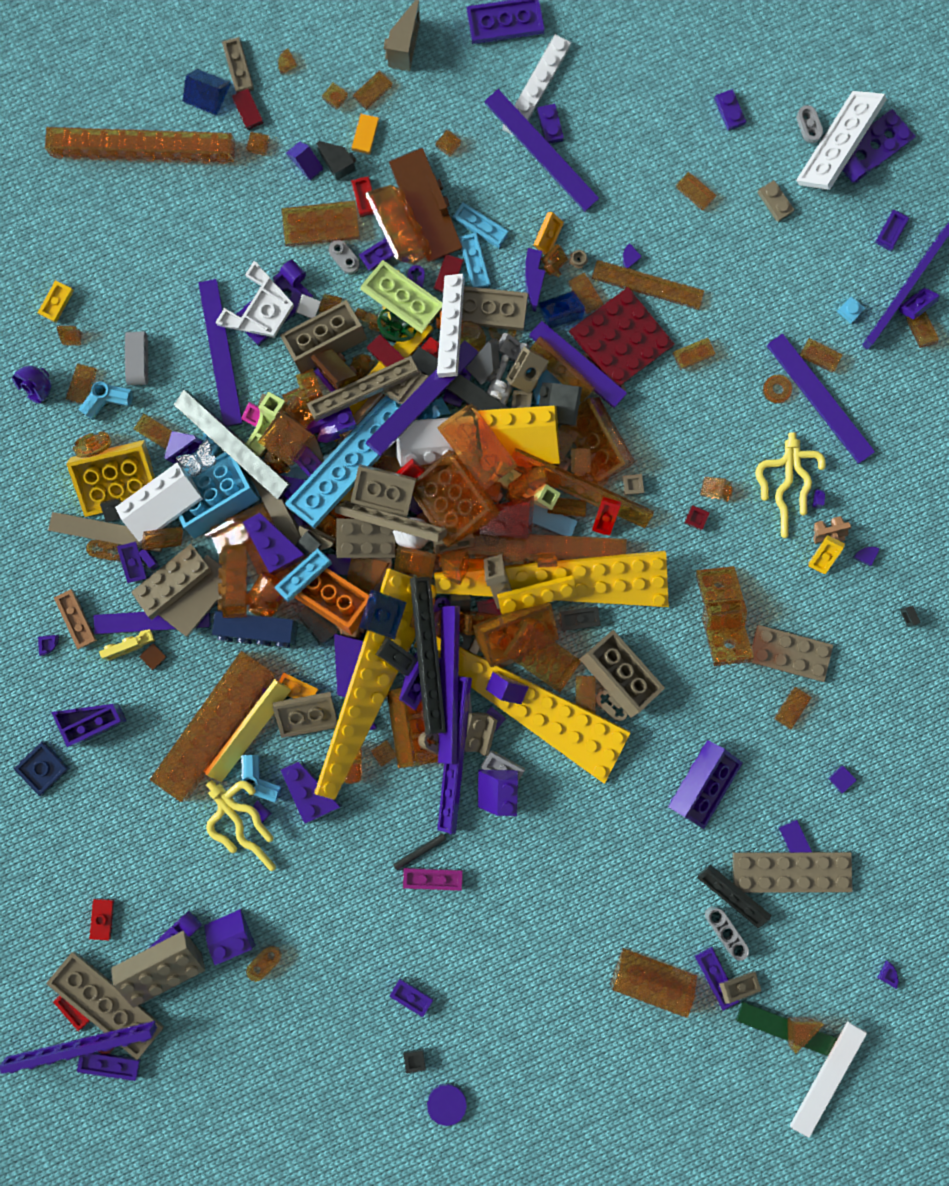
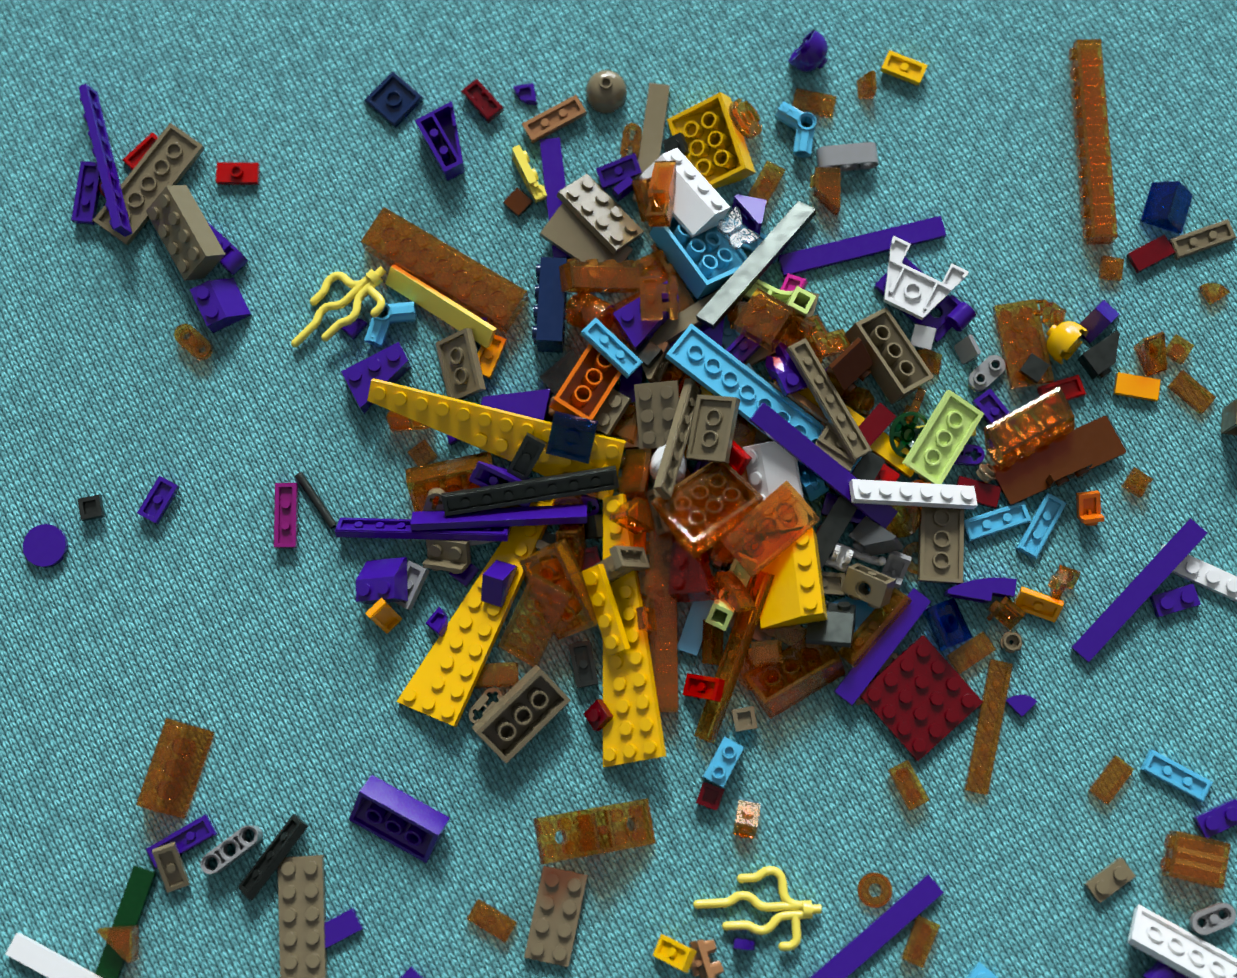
camera: 90 degrees right, 5 degrees down
(50, 685) = (482, 100): none -> dark red plate
(52, 570) = (606, 91): none -> dark tan cylinder
(160, 522) = (661, 194): none -> clear orange slope
(164, 377) = (826, 187): none -> clear orange slope
(260, 535) = (651, 298): none -> clear orange plate
(296, 196) = (1051, 313): none -> clear orange plate
(320, 187) = (1064, 340): none -> yellow cylinder
(322, 270) = (967, 349): none -> light grey slope
(338, 117) = (1152, 354): none -> clear orange slope
(344, 215) = (1034, 368): none -> pearl dark grey tile
(360, 578) = (611, 412): none -> dark tan plate
(433, 265) = (986, 472): none -> dark tan plate
(468, 184) = (1089, 508): none -> orange bracket
(530, 211) = (1063, 578): none -> clear orange bracket
(530, 791) = (383, 615): none -> light orange tile
(536, 744) = (438, 621): none -> dark purple tile
(624, 608) = (598, 715): none -> dark red plate
(669, 504) = (723, 762): none -> medium azure brick
(694, 139) = (1176, 775): none -> medium azure tile
(763, 131) = (1195, 859): none -> clear orange brick

